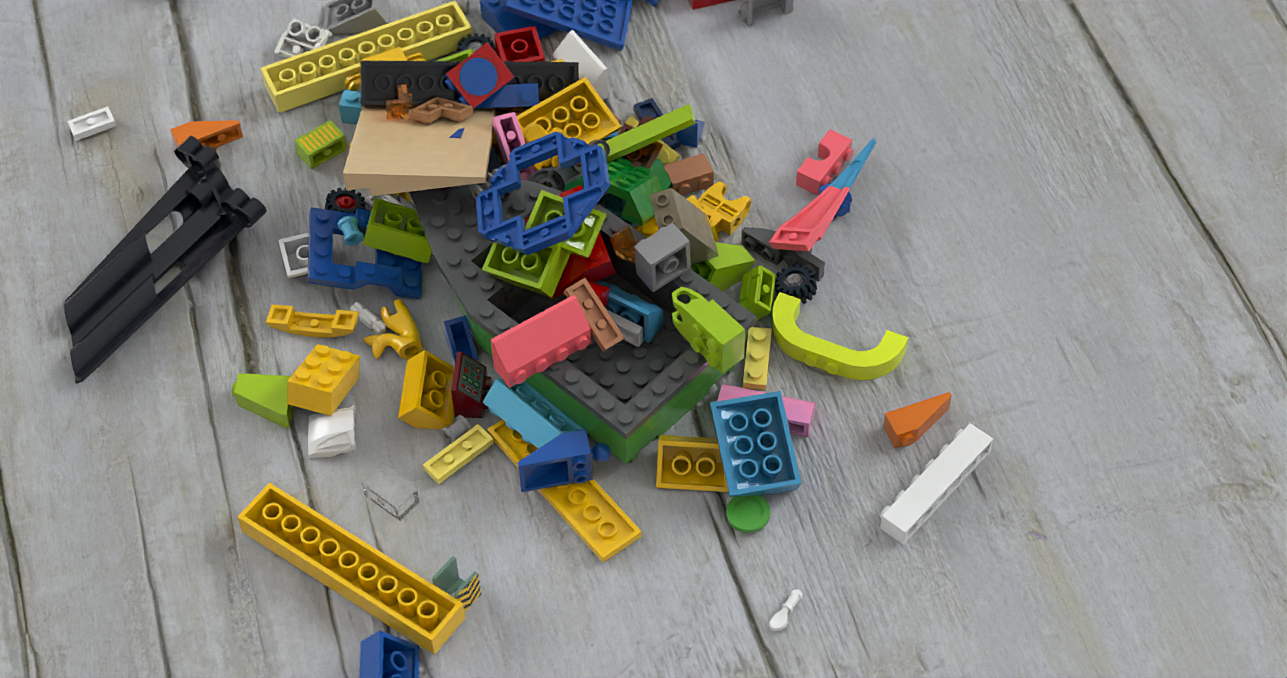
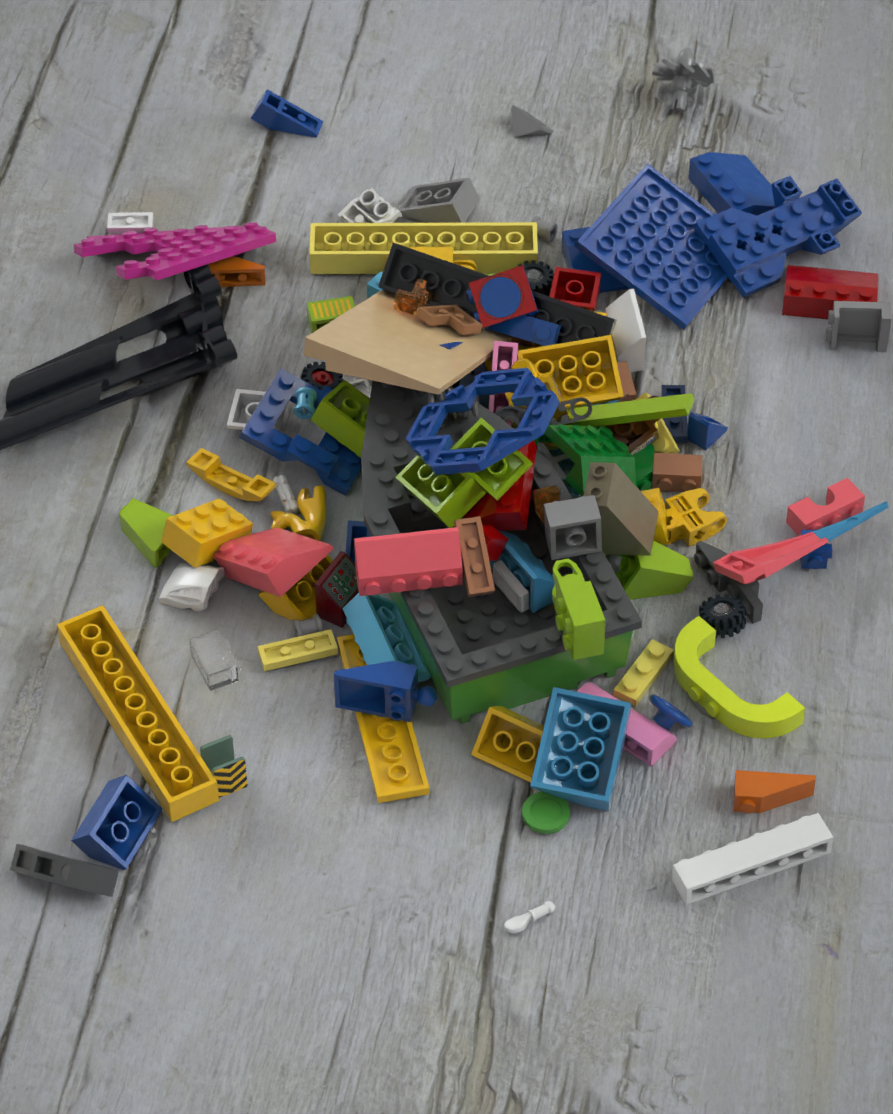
camera: 25 degrees right, 5 degrees down
(162, 130) = (177, 249): none -> dark pink wing
(396, 381) = (270, 559): none -> coral slope
(758, 291) = (676, 609): lime brick -> none
(800, 386) = (668, 714): none -> blue piece

